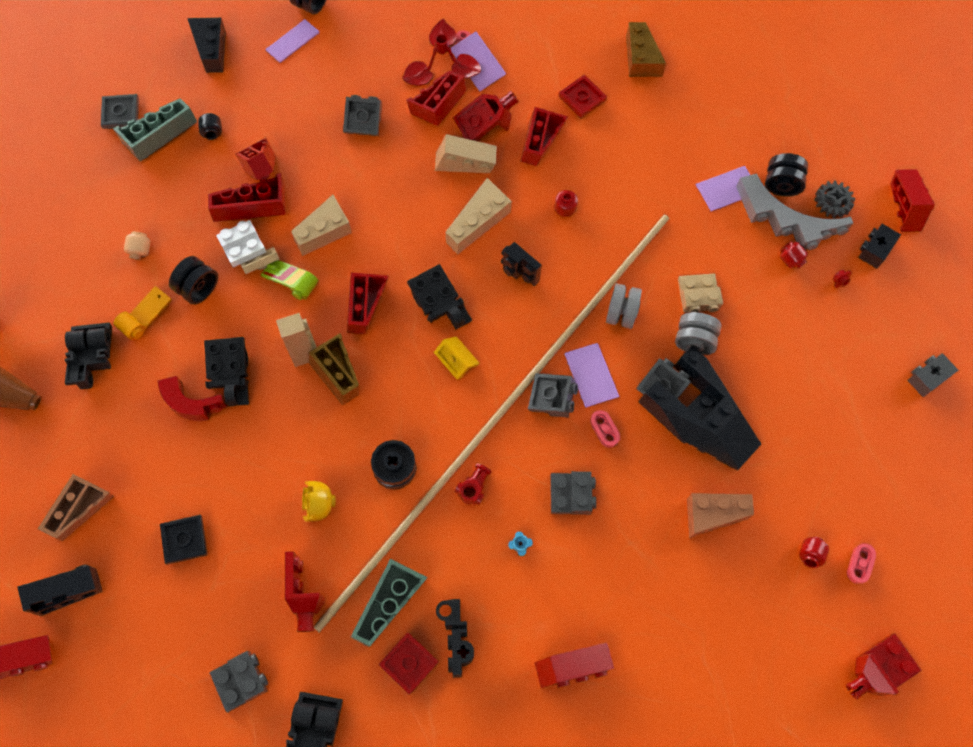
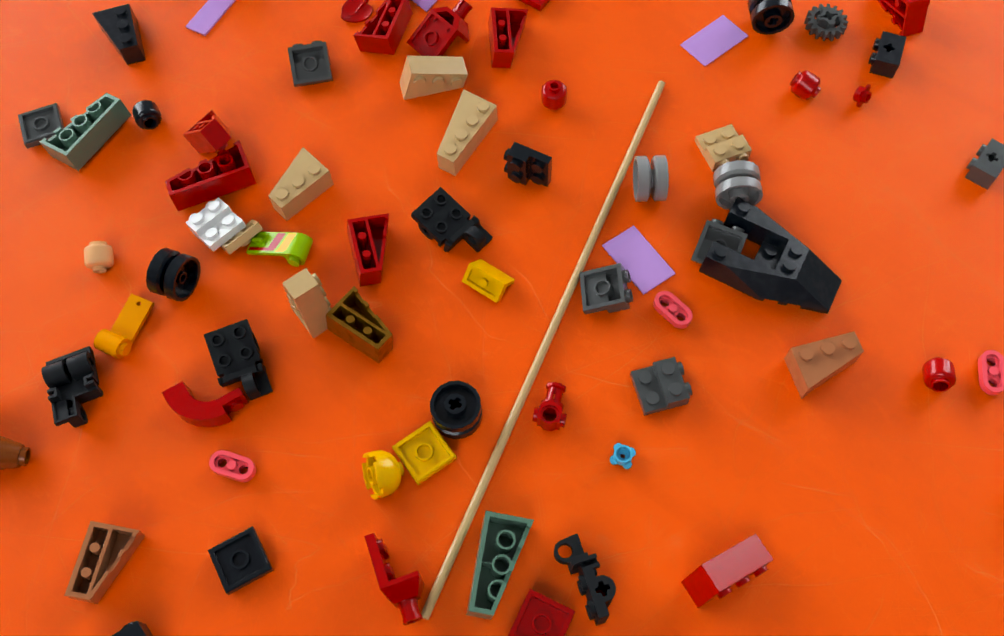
camera: 10 degrees left, 5 degrees down
(199, 459) = (234, 466): none -> coral plate
(357, 493) = (424, 452): none -> yellow plate
(806, 229) = (781, 54): light grey arch -> none

